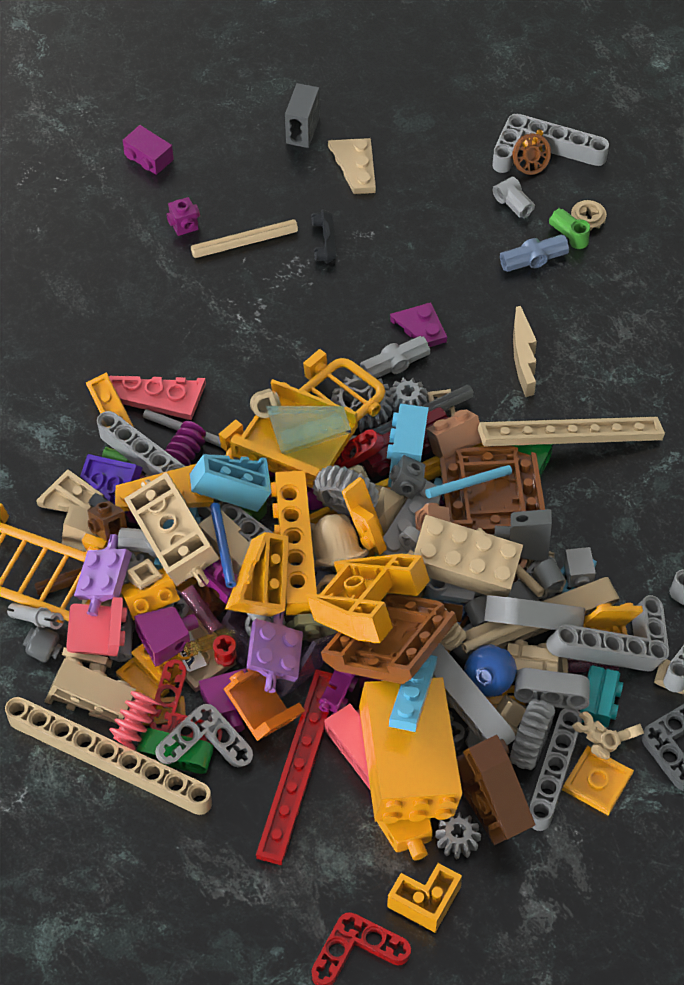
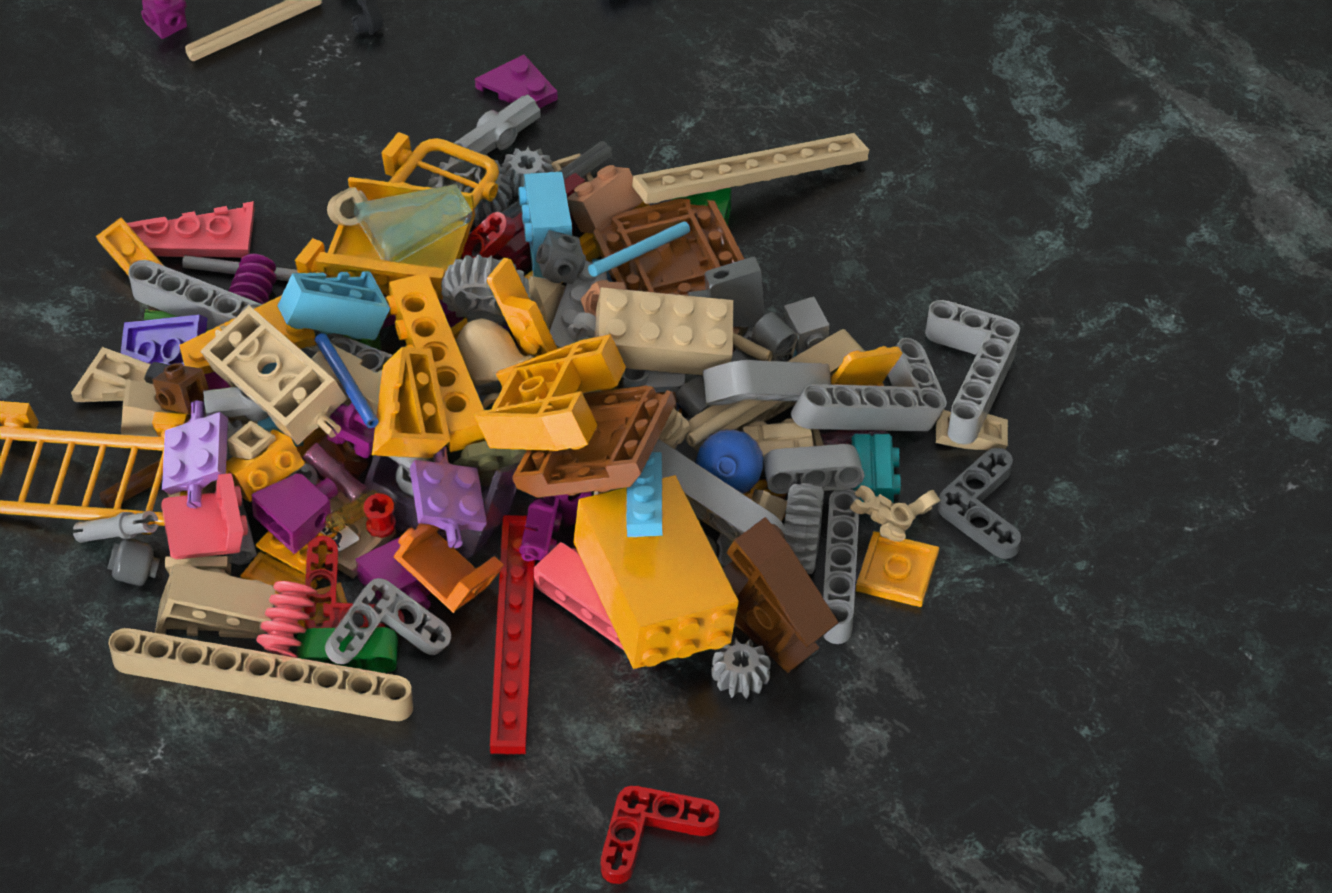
camera: 15 degrees left, 5 degrees down
(409, 835) = (675, 680): light orange torso -> none
(427, 902) = (720, 751): light orange brick -> none
(524, 351) = (661, 88): tan slope -> none

